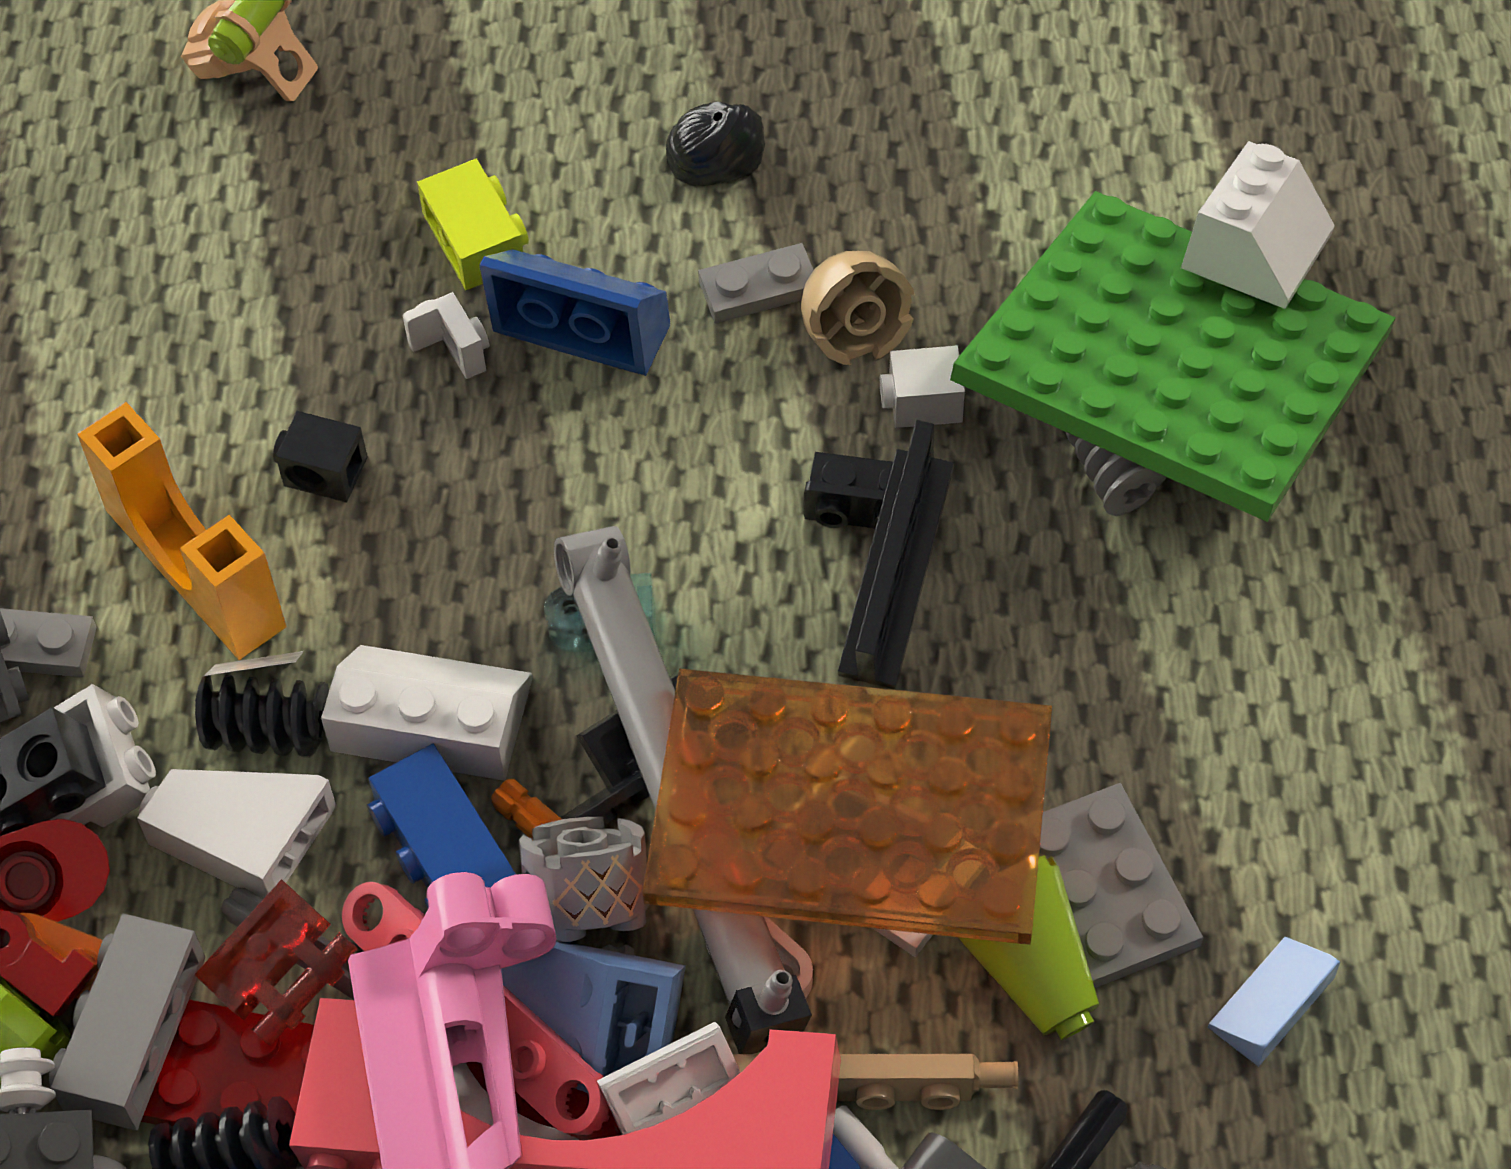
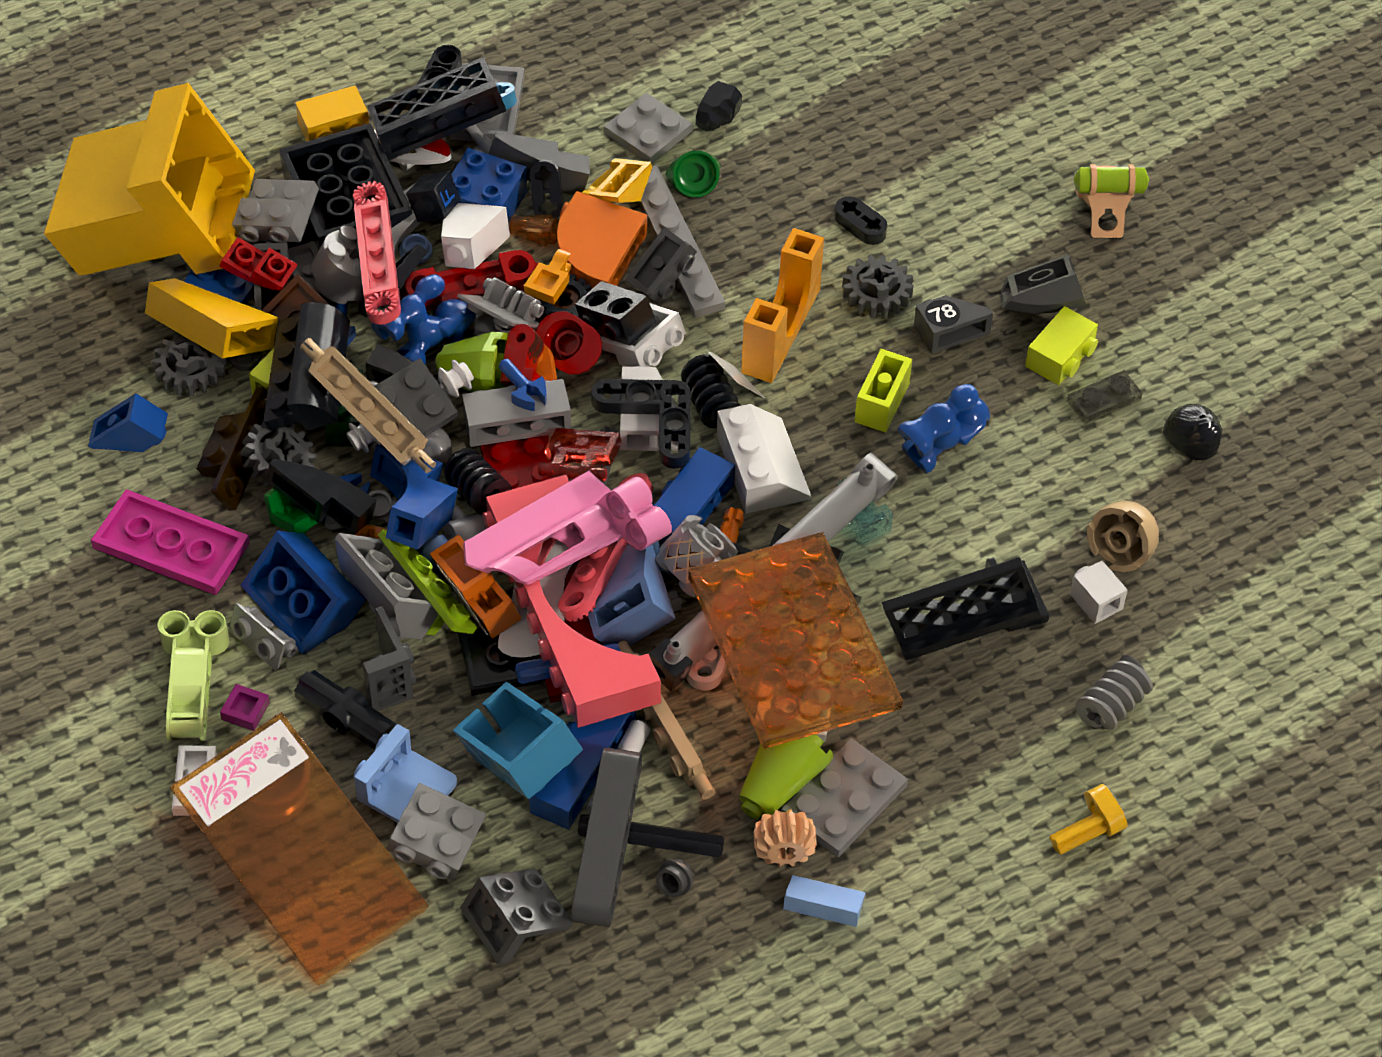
camera: 60 degrees right, 5 degrees down
(62, 364) = (858, 222): none -> black beam
(104, 979) = (524, 386): none -> blue bar
(208, 398) = (877, 286): none -> dark grey gear
(253, 796) = (658, 403): none -> black beam
(320, 456) = (868, 342): black brick -> none
(335, 340) = (950, 322): none -> dark grey slope
(360, 192) = (1043, 288): none -> dark grey slope
(415, 479) = (883, 390): none -> neon yellow brick
(447, 321) = (989, 368): white bracket -> none
(537, 420) = (944, 426): none -> blue animal
(575, 309) = (1037, 411): blue slope -> none
(586, 220) = (1104, 397): none -> clear smoke plate
(669, 1079) = (605, 629): white plate -> none
(755, 282) = (1113, 485): light grey plate -> none
(1161, 999) = (784, 838): none -> light nougat gear
(1170, 363) = (1197, 696): bright green plate -> none
(1260, 227) = (1313, 703): white slope -> none
(1310, 561) = (1106, 818): none -> yellow piece

